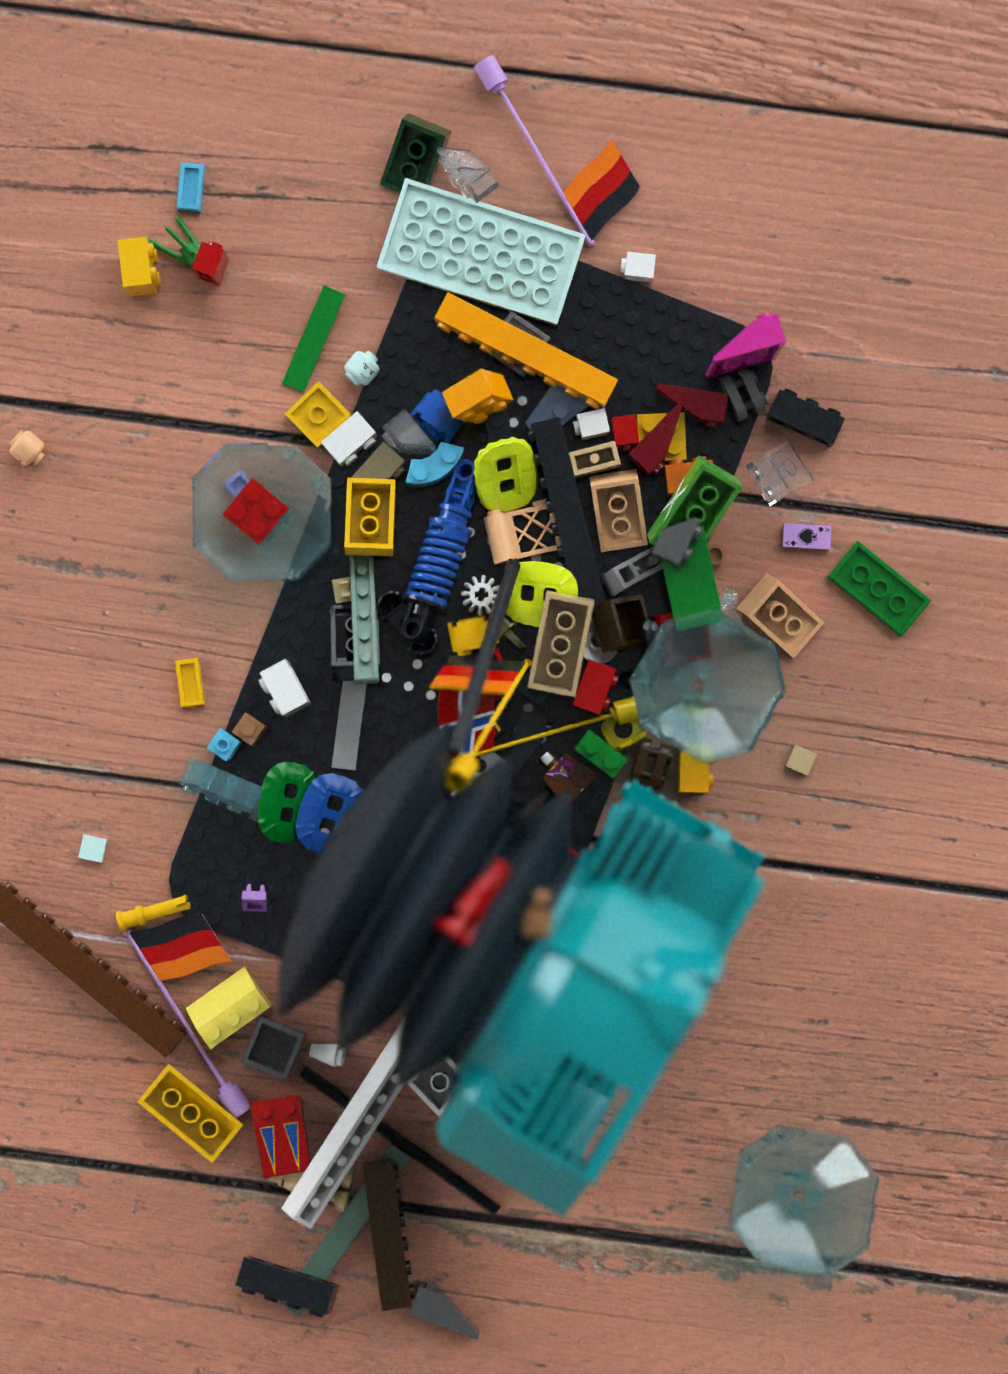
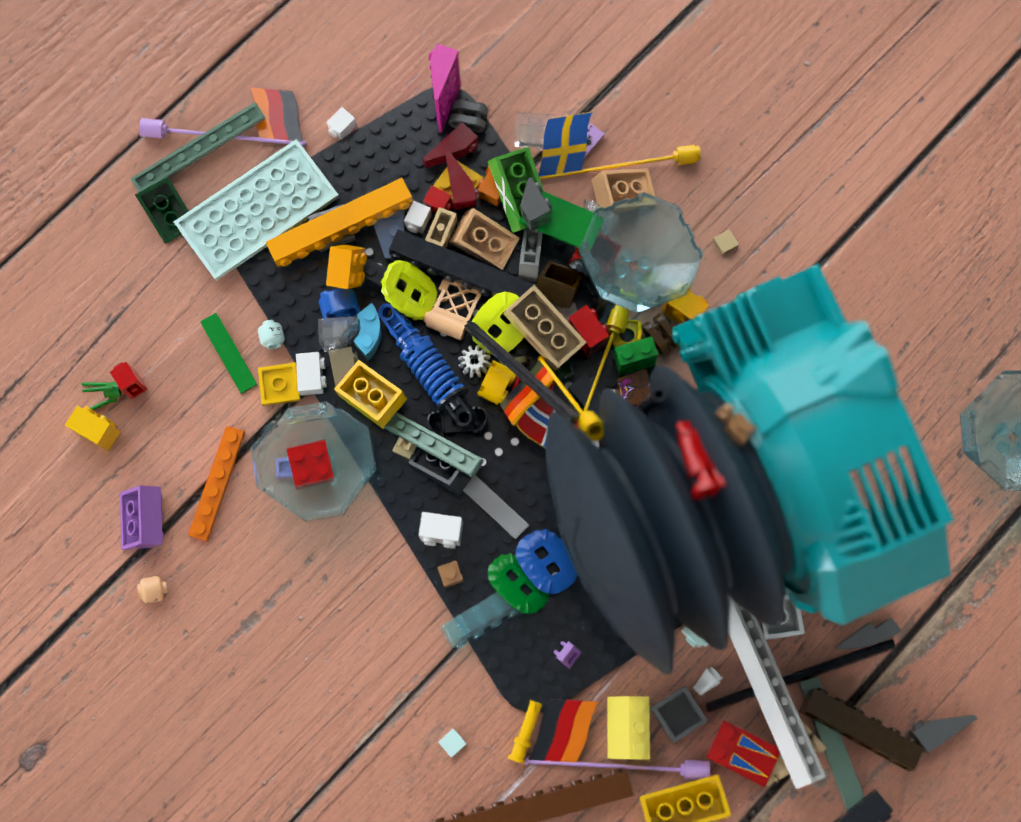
camera: 50 degrees left, 10 degrees down
(87, 383) = (141, 517): none -> medium lavender slope
(175, 429) = (216, 483): none -> orange plate
(190, 187) = (71, 361): medium azure tile -> none
(190, 682) = (389, 594): yellow tile -> none
(224, 745) = (448, 598): medium azure brick -> none
(467, 173) = (202, 181): clear slope -> none
(486, 1184) = (869, 635): none -> dark grey slope
(505, 139) = (199, 147): none -> sand green tile
(783, 521) = (566, 148): none -> flag
(805, 417) = (511, 91): black brick -> none
(879, 588) = (650, 123): green tile -> none

